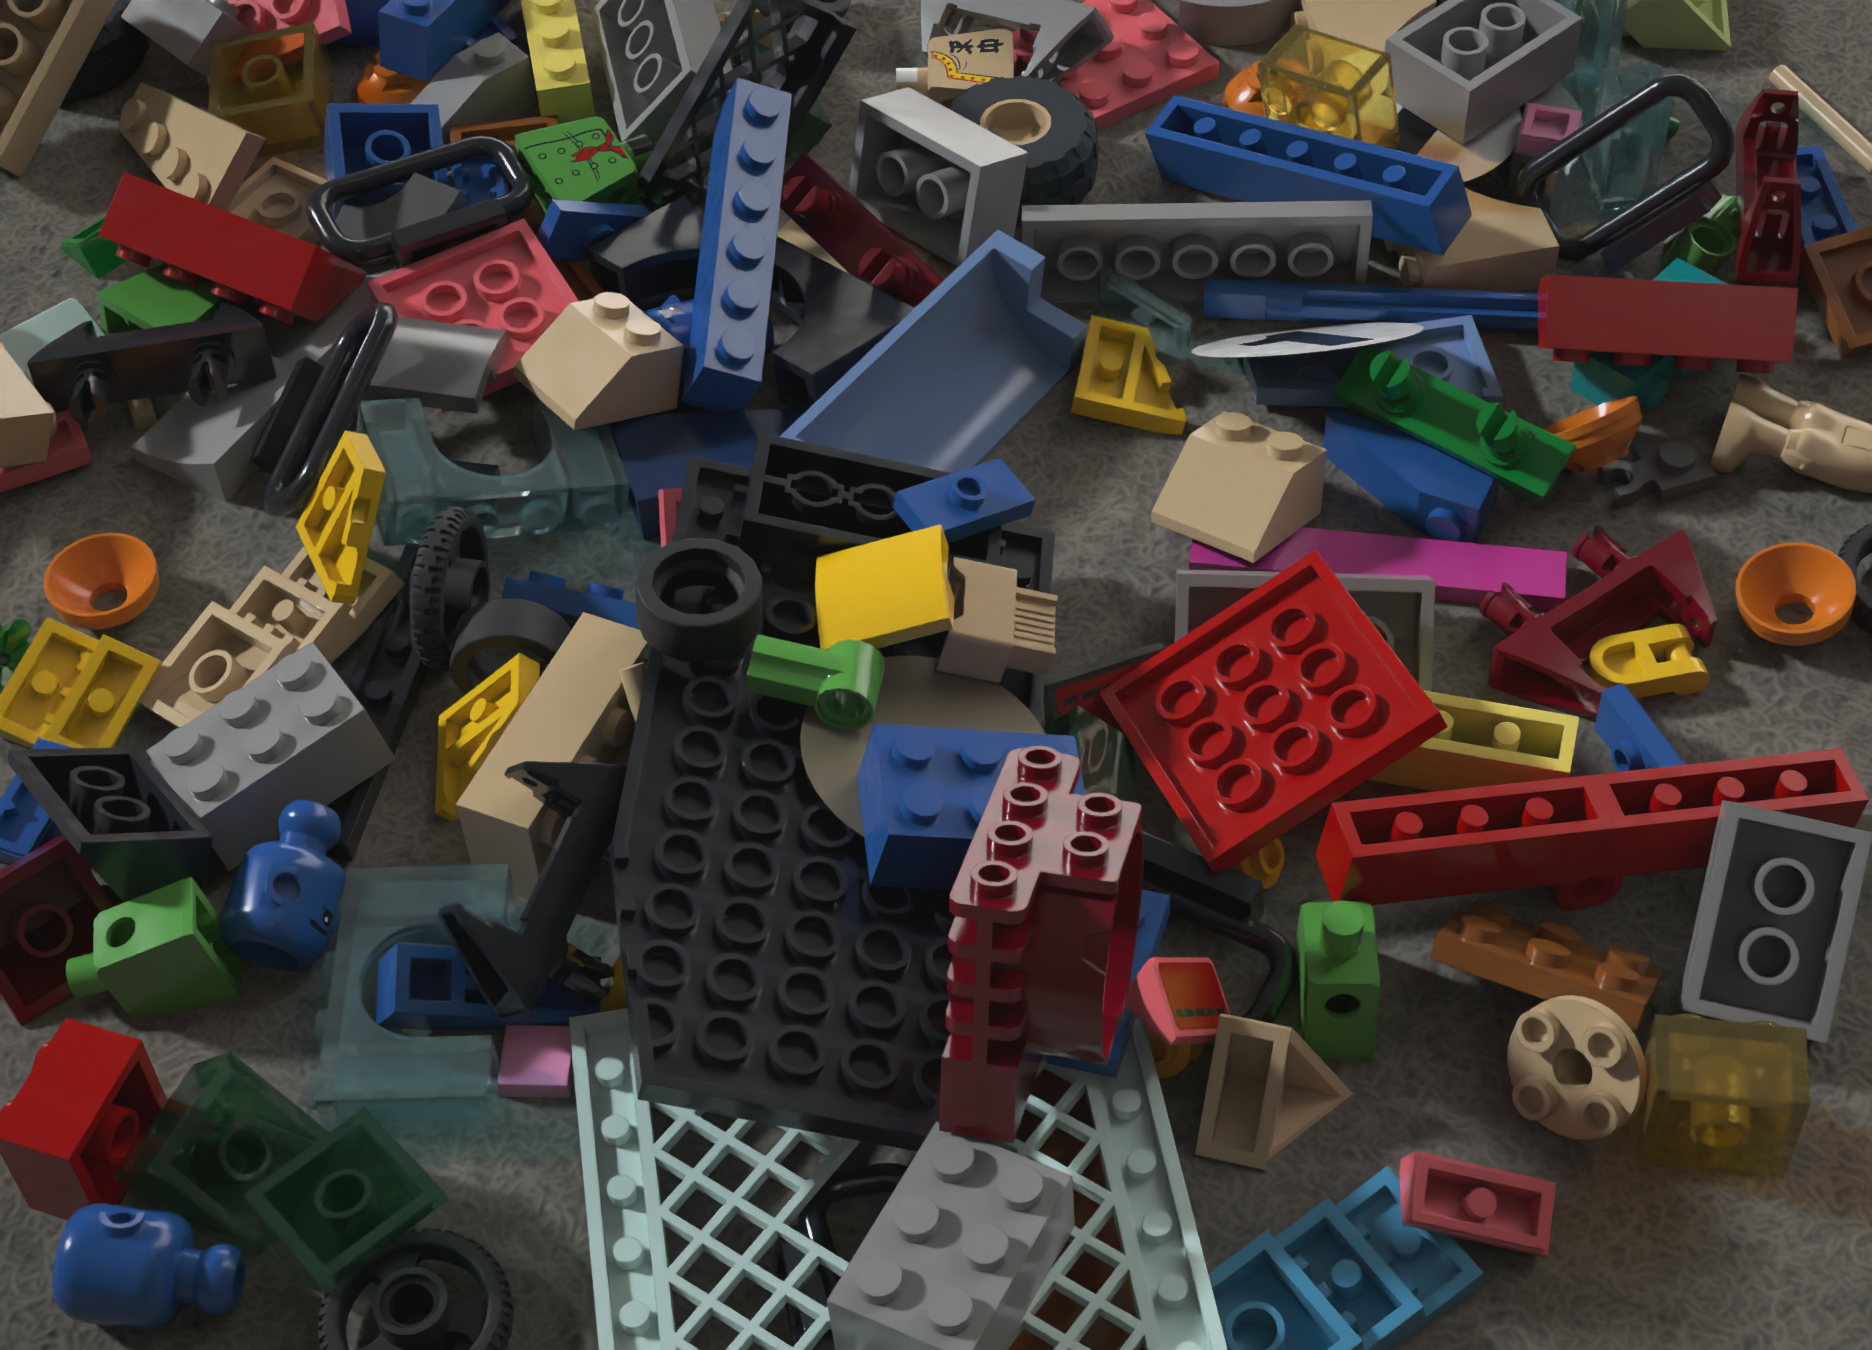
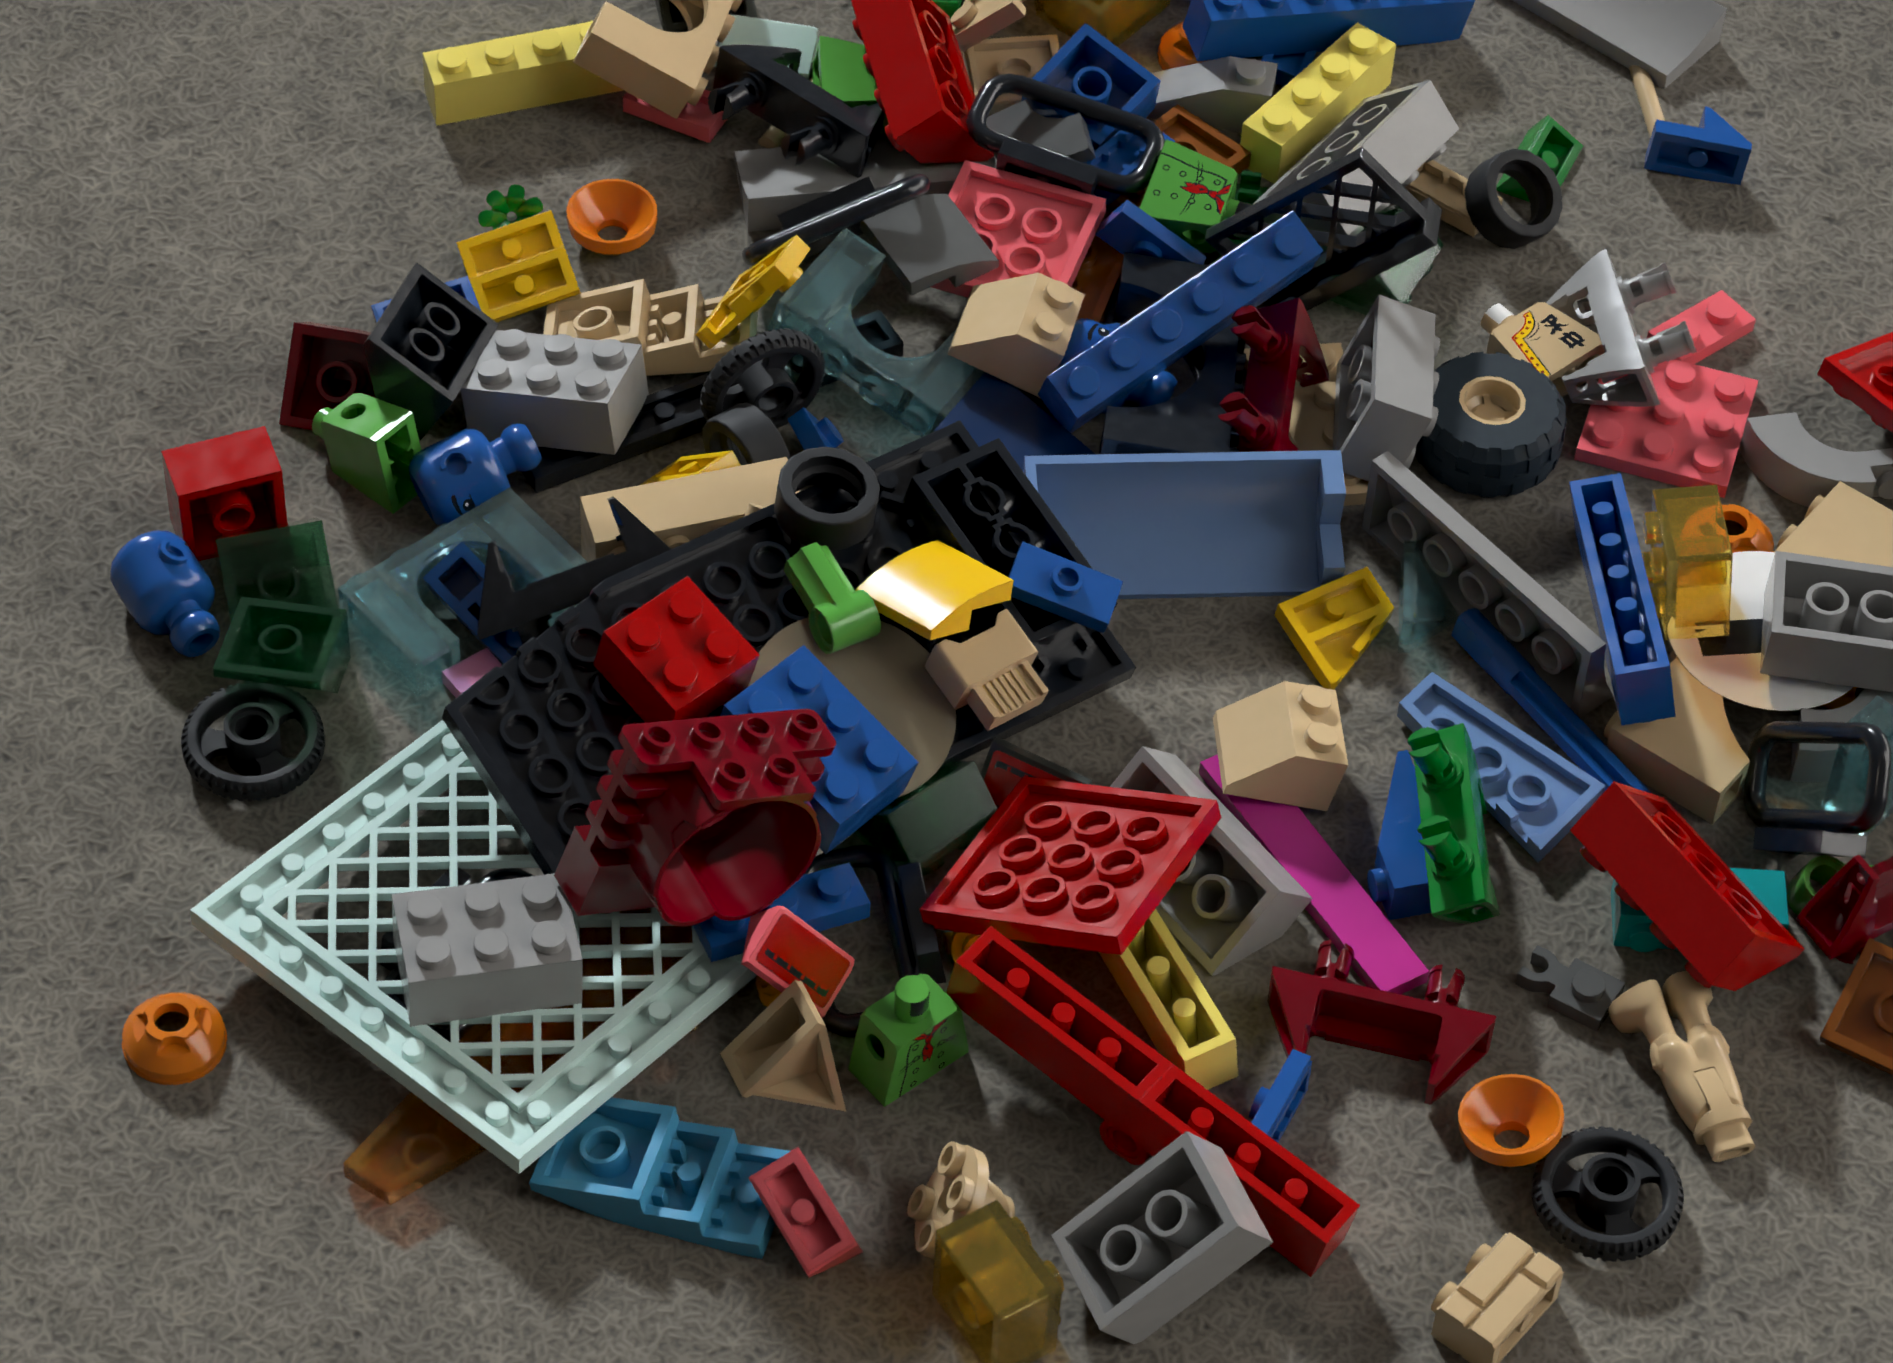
camera: 45 degrees right, 0 degrees up
(780, 842) = (676, 656): none -> red brick
(1307, 340) = (1453, 696): white sticker -> none
(1544, 127) = (1828, 706): bright pink tile -> none
(1546, 960) = (1025, 1143): dark orange plate -> none
(1600, 433) = (1550, 921): orange piece -> none
(1632, 661) = (1352, 1060): yellow plate -> none

